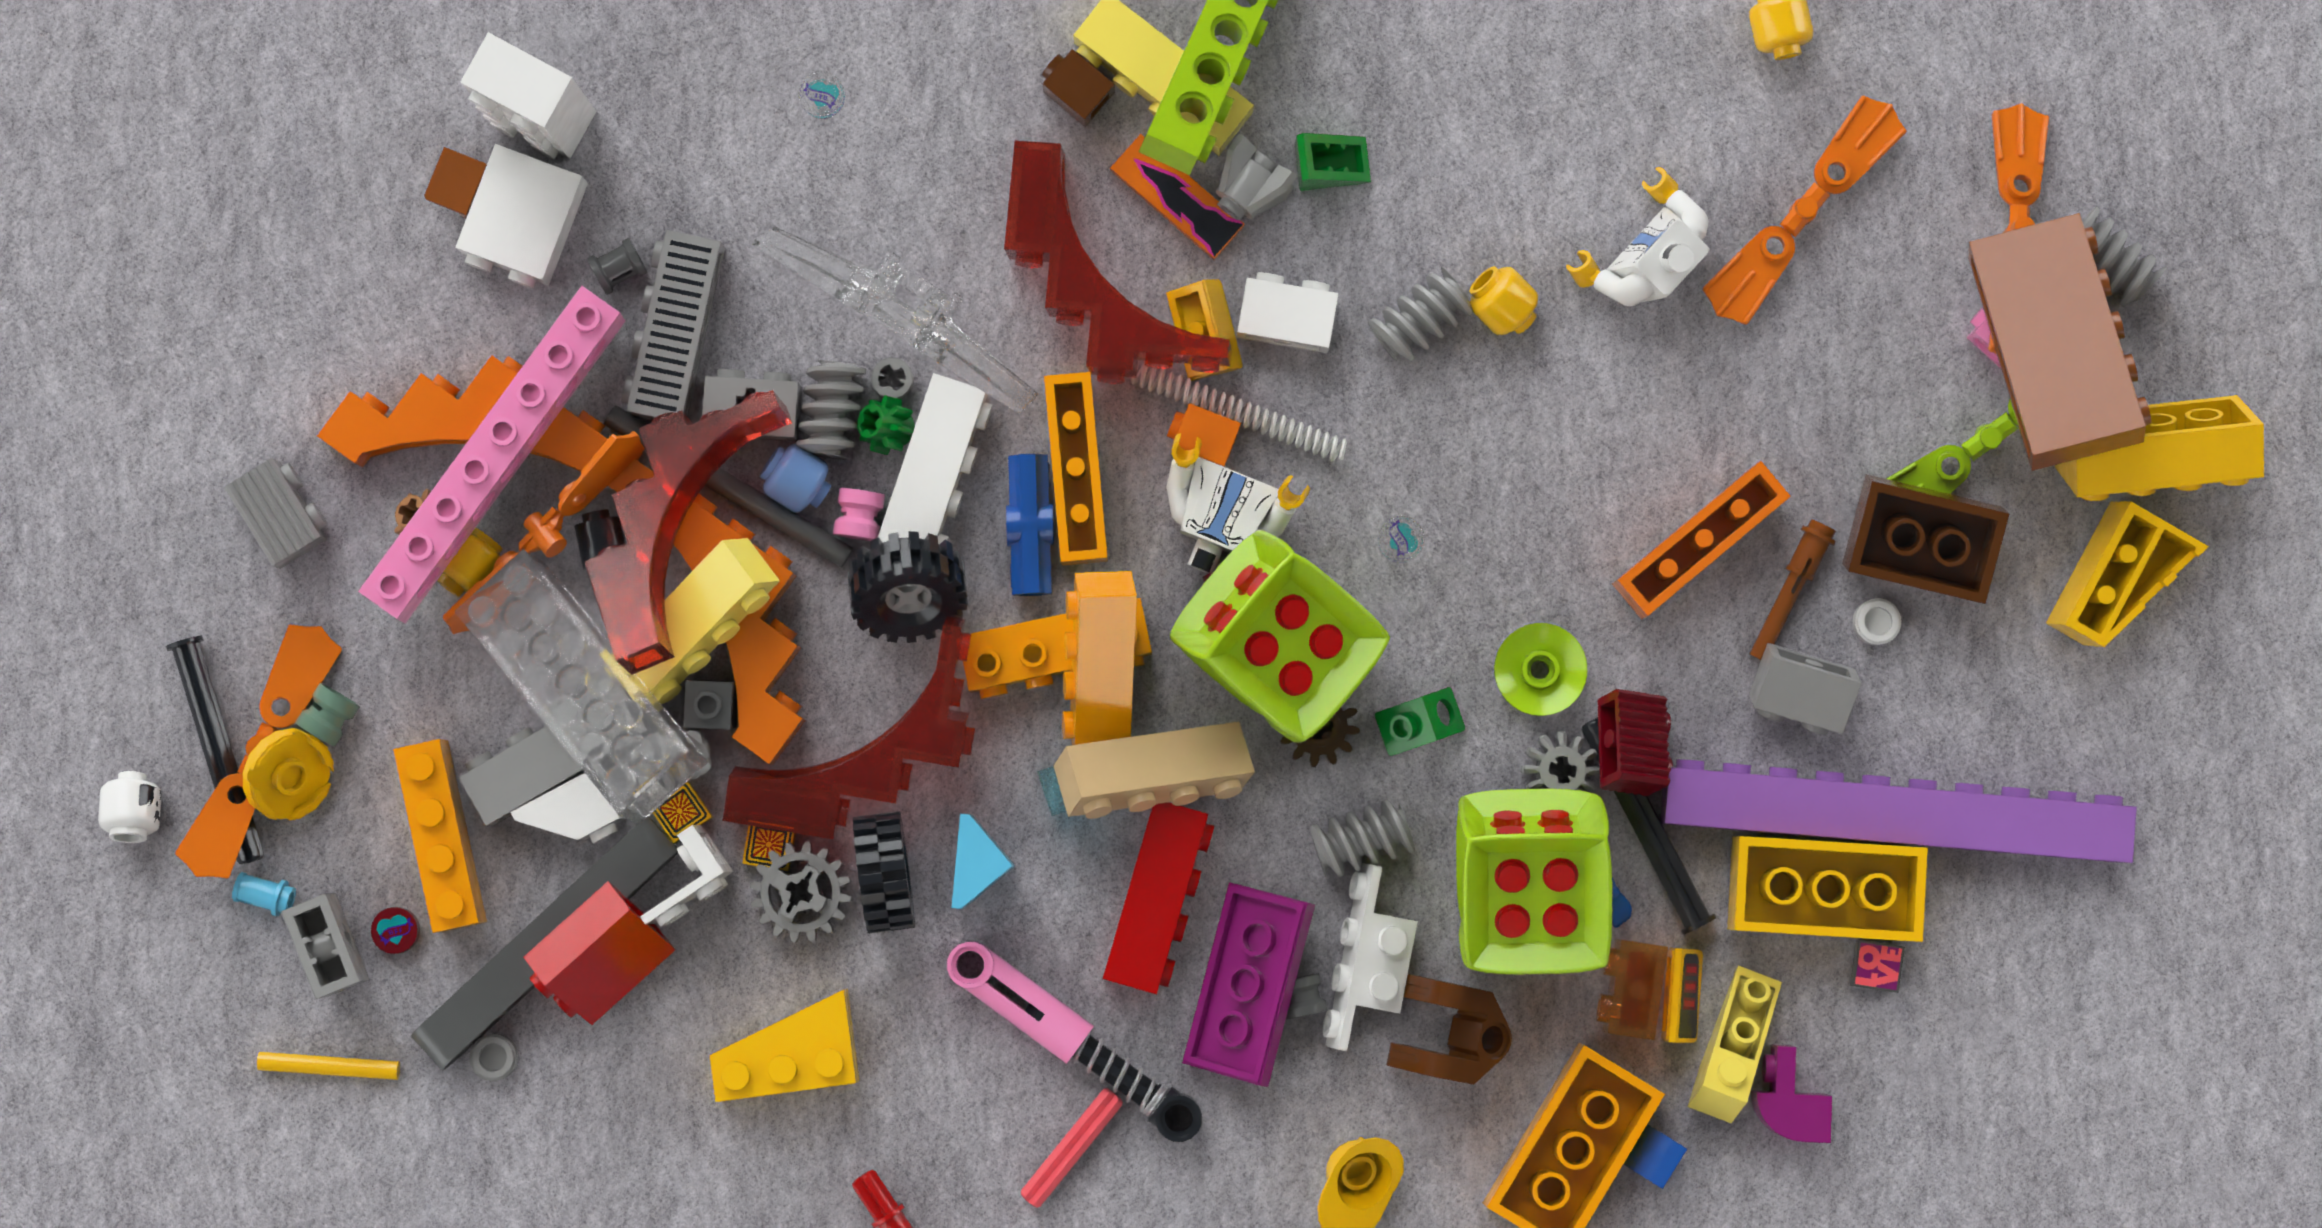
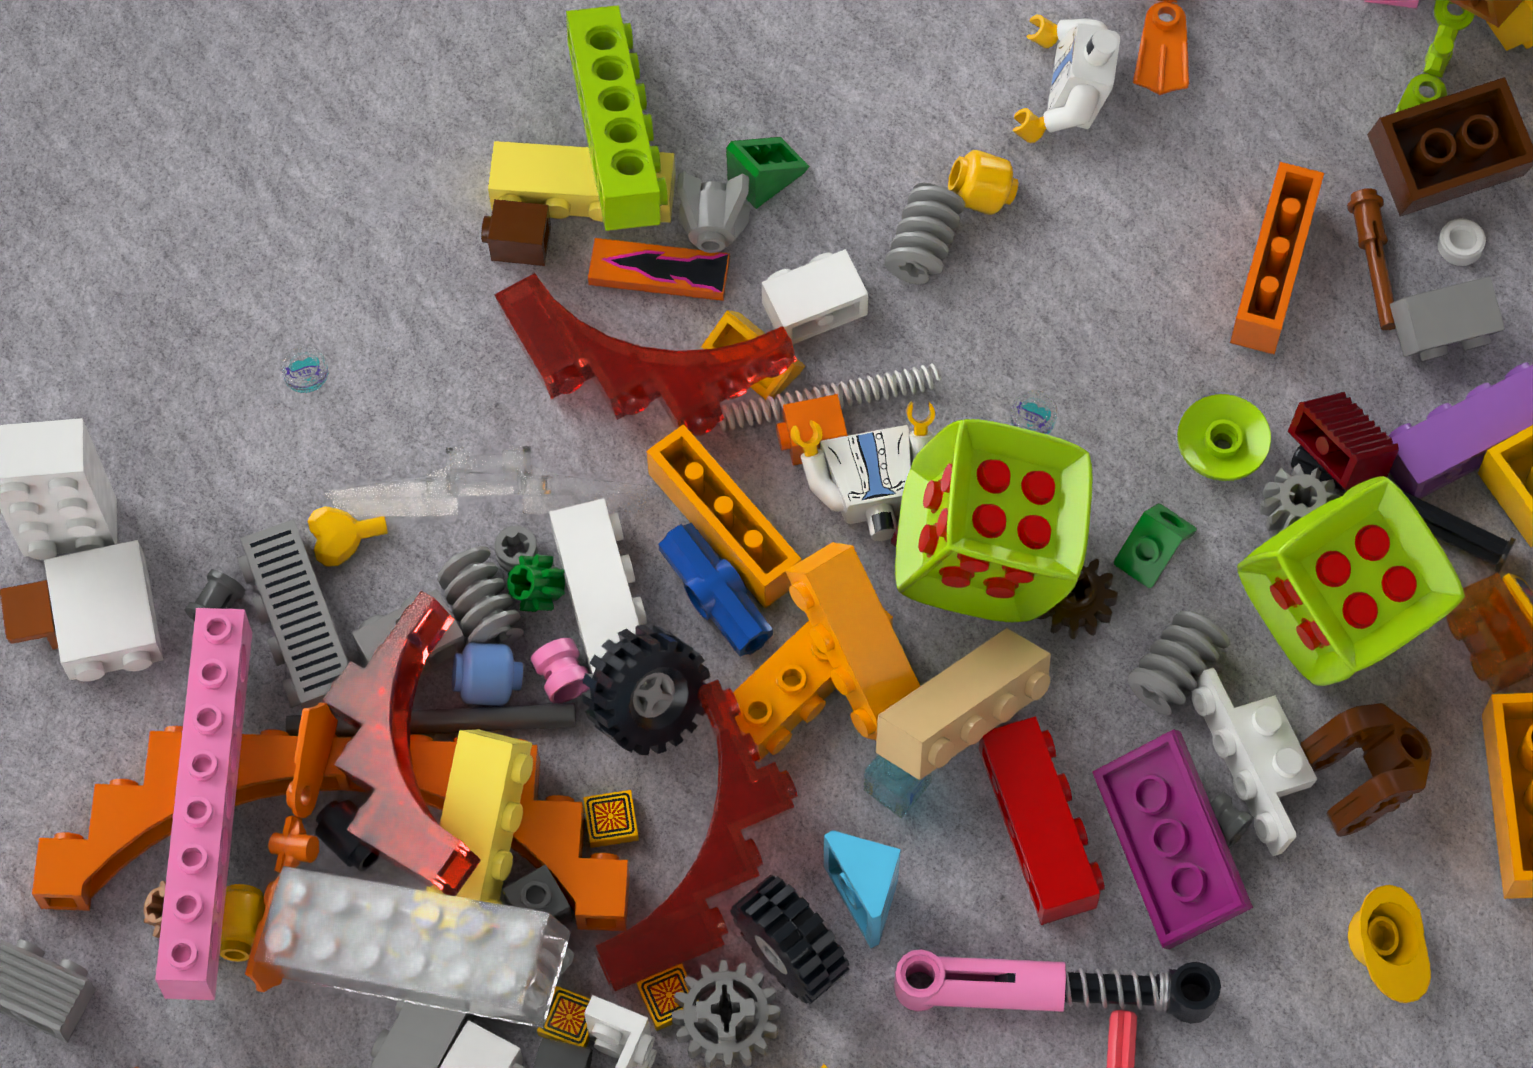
camera: 30 degrees left, 20 degrees down
(757, 272) = (340, 534): none -> yellow rock
(819, 665) = (610, 818): none -> tile

